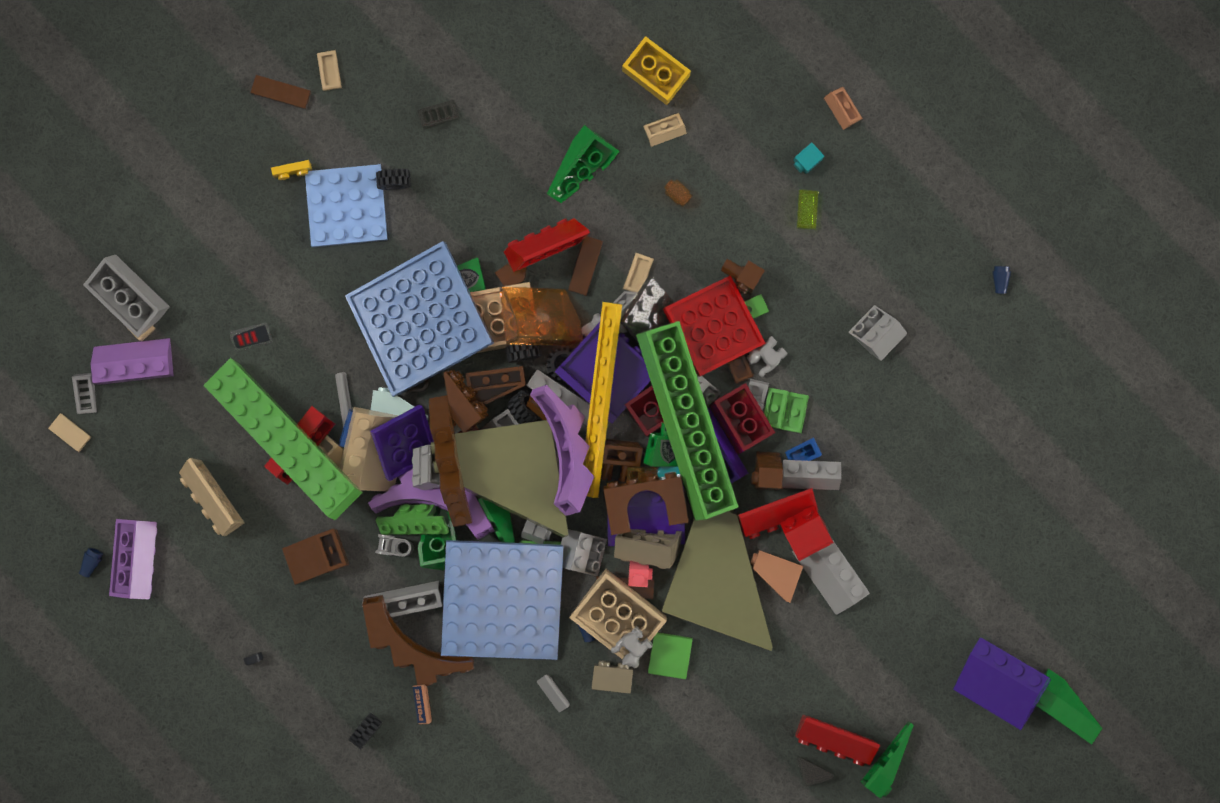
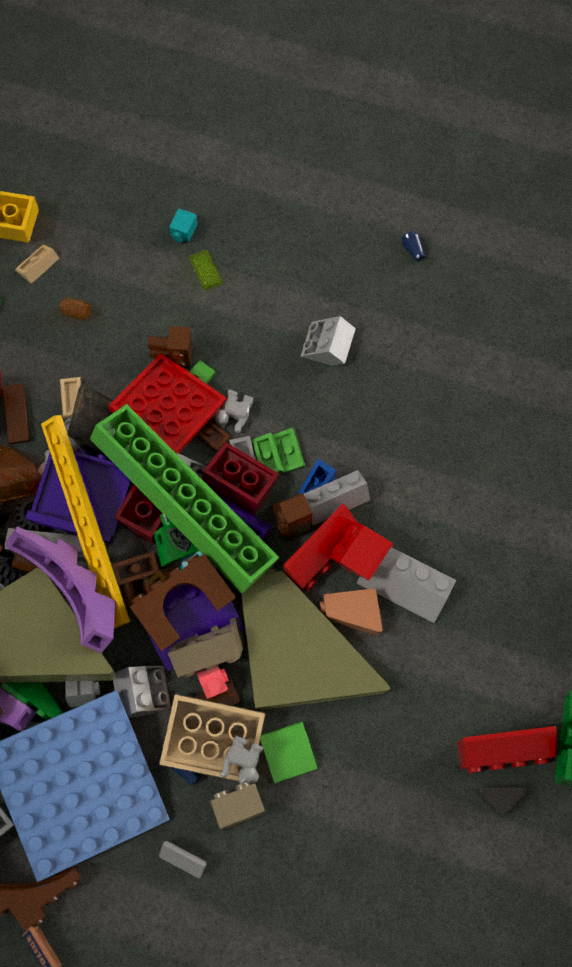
camera: 30 degrees left, 15 degrees down
(843, 108) = (192, 175): nougat slope -> none

